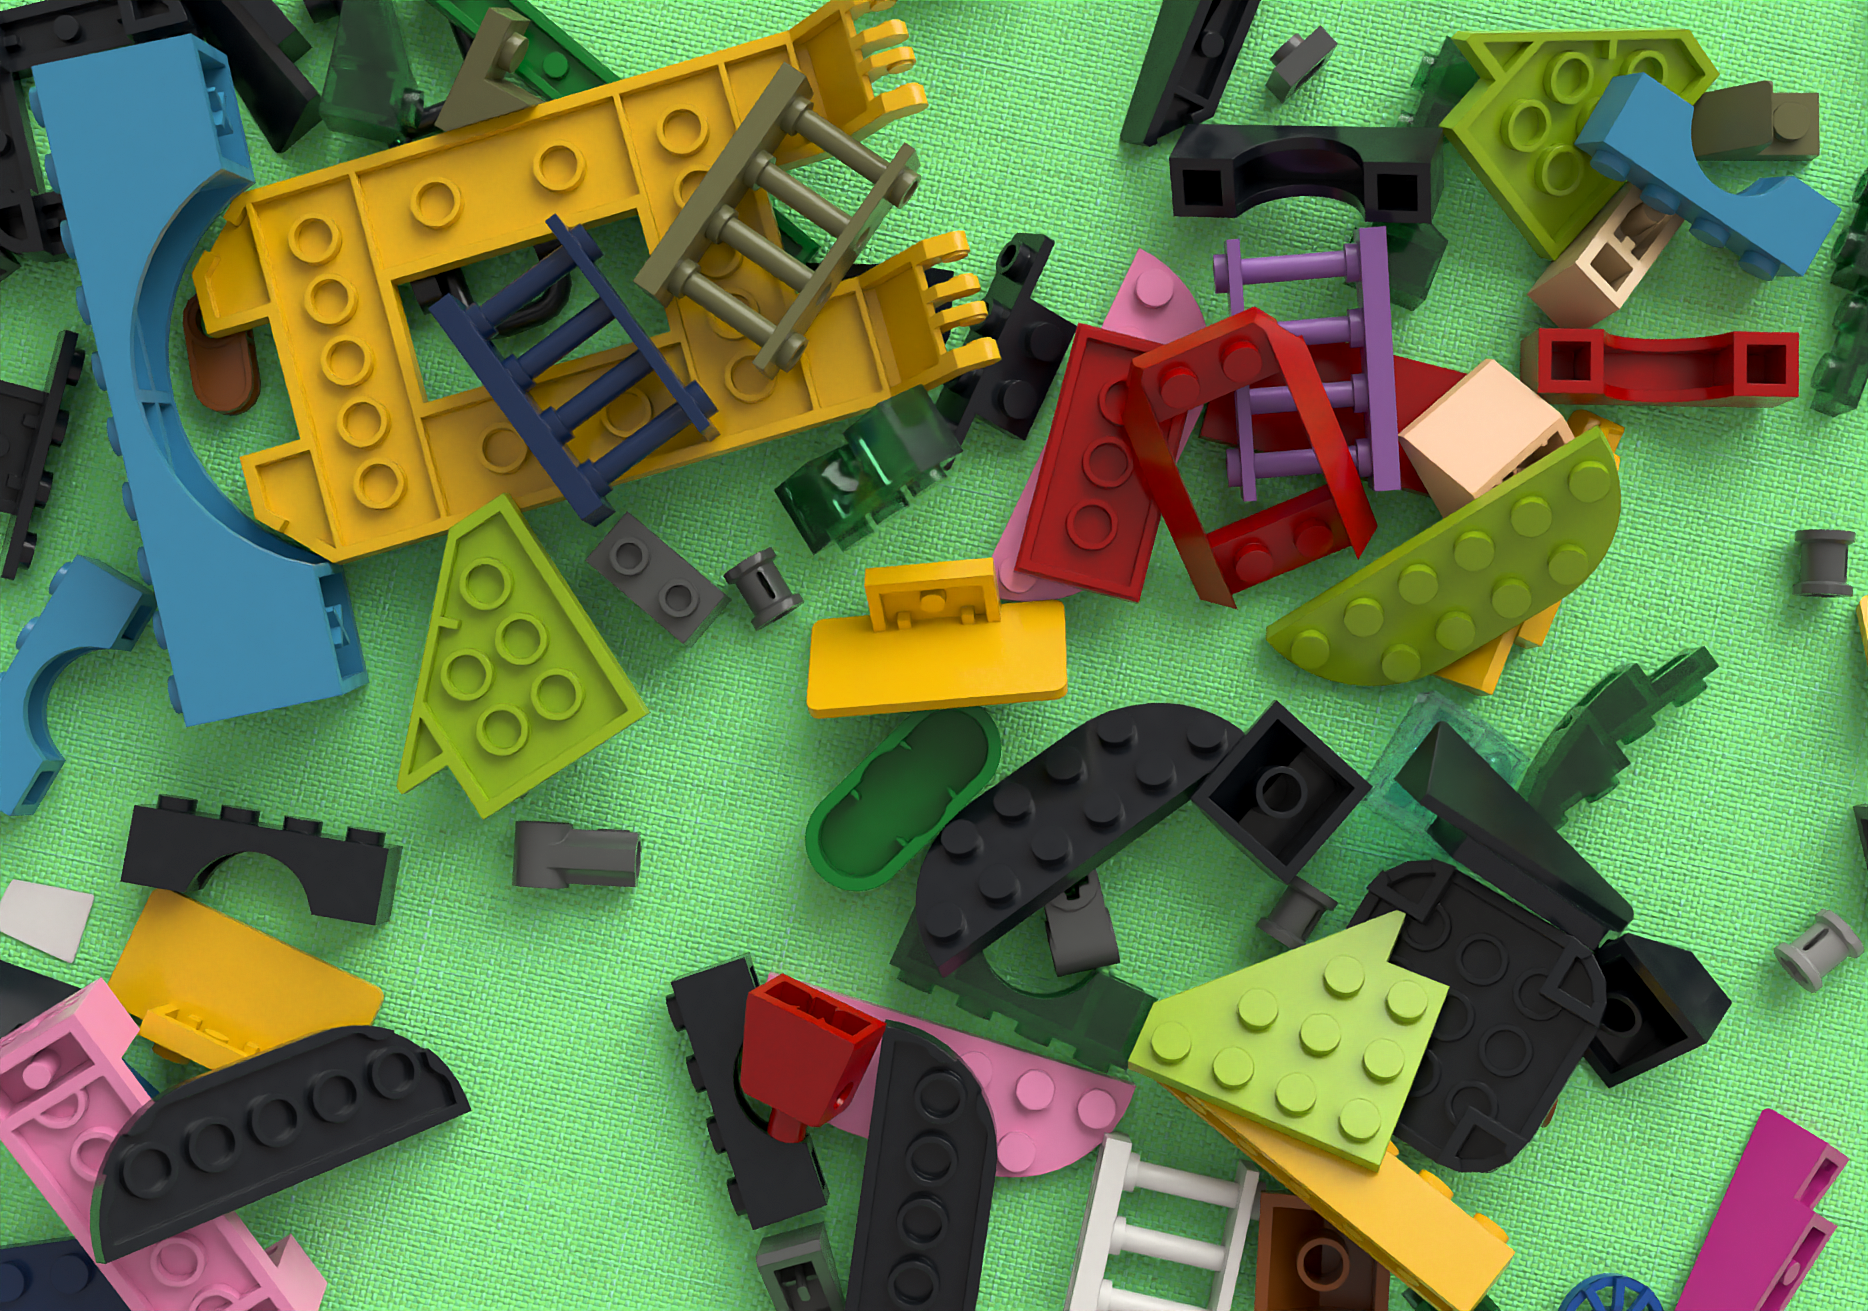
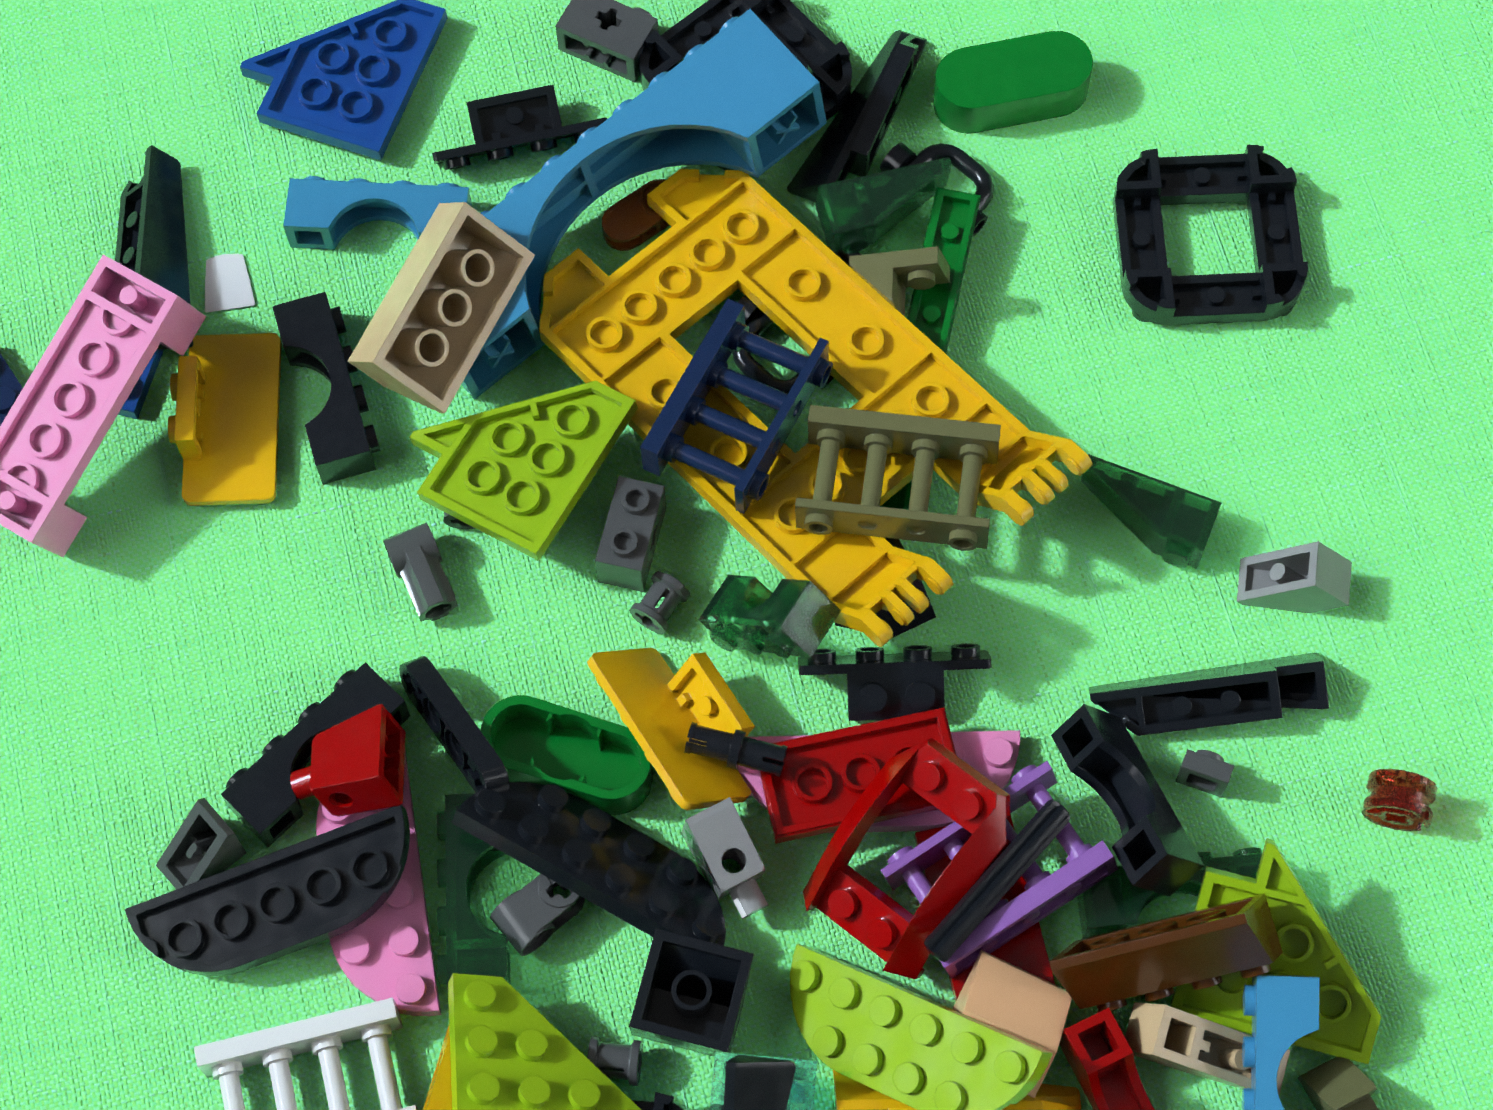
camera: 60 degrees right, 20 degrees down
(254, 674) = (442, 306): none -> tan slope
(263, 1129) = (156, 453): black plate -> none
(808, 913) = (453, 726): none -> black beam
(1015, 594) = (736, 749): none -> black pin
(1107, 668) = (719, 836): none -> light grey torso
(1338, 374) = (997, 880): none -> black axle
(1515, 222) = (1169, 954): none -> reddish brown slope

